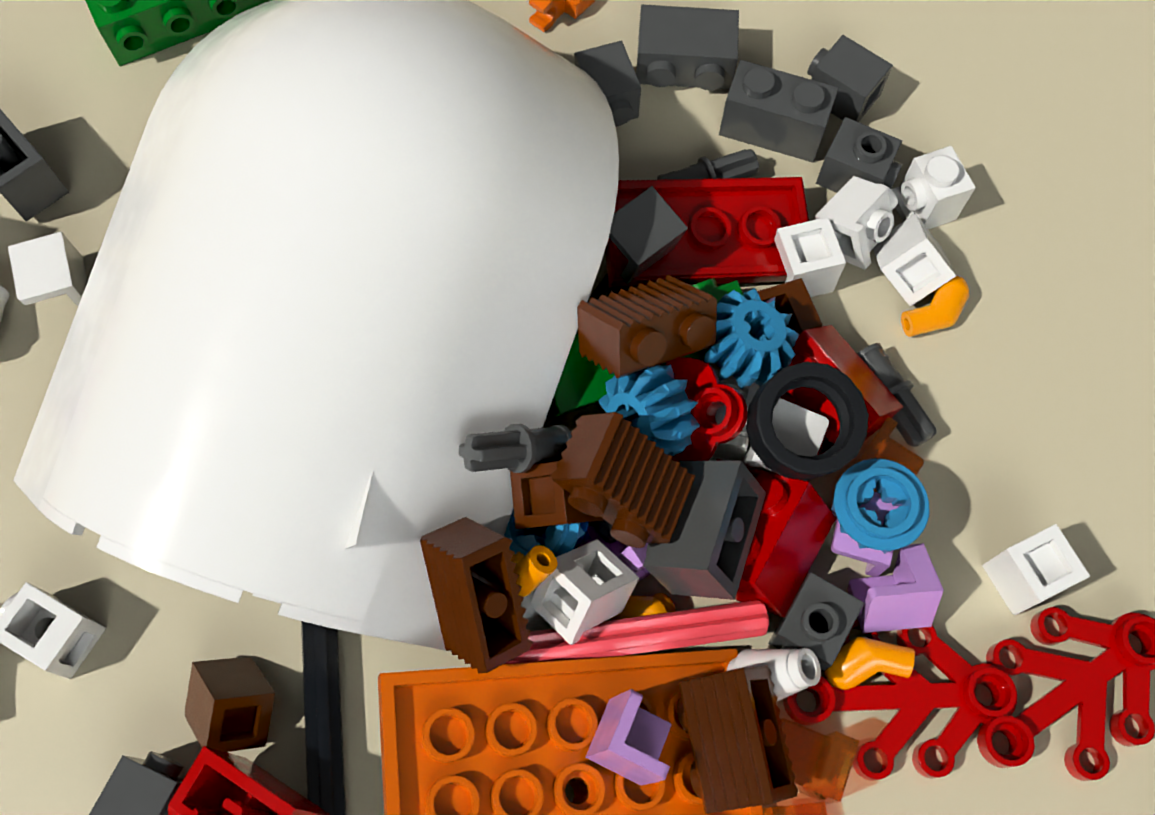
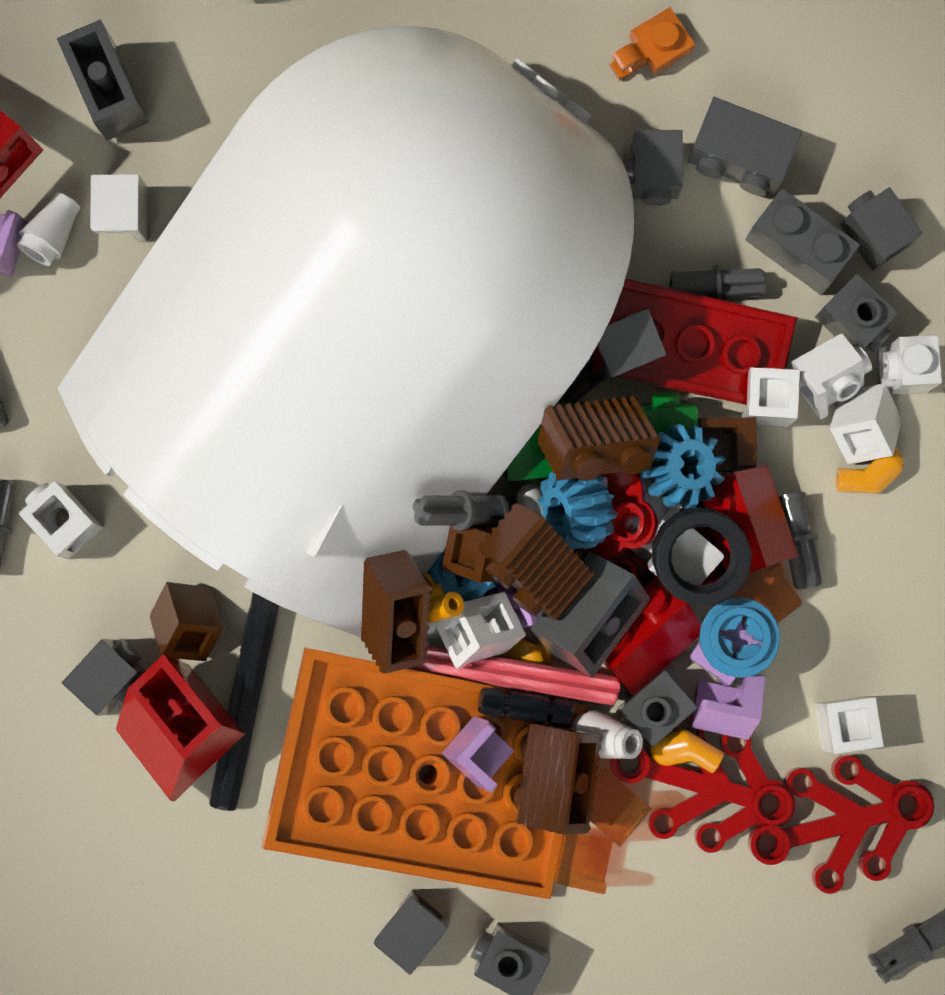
camera: 25 degrees right, 15 degrees up
(665, 667) = (525, 706): none -> black axle

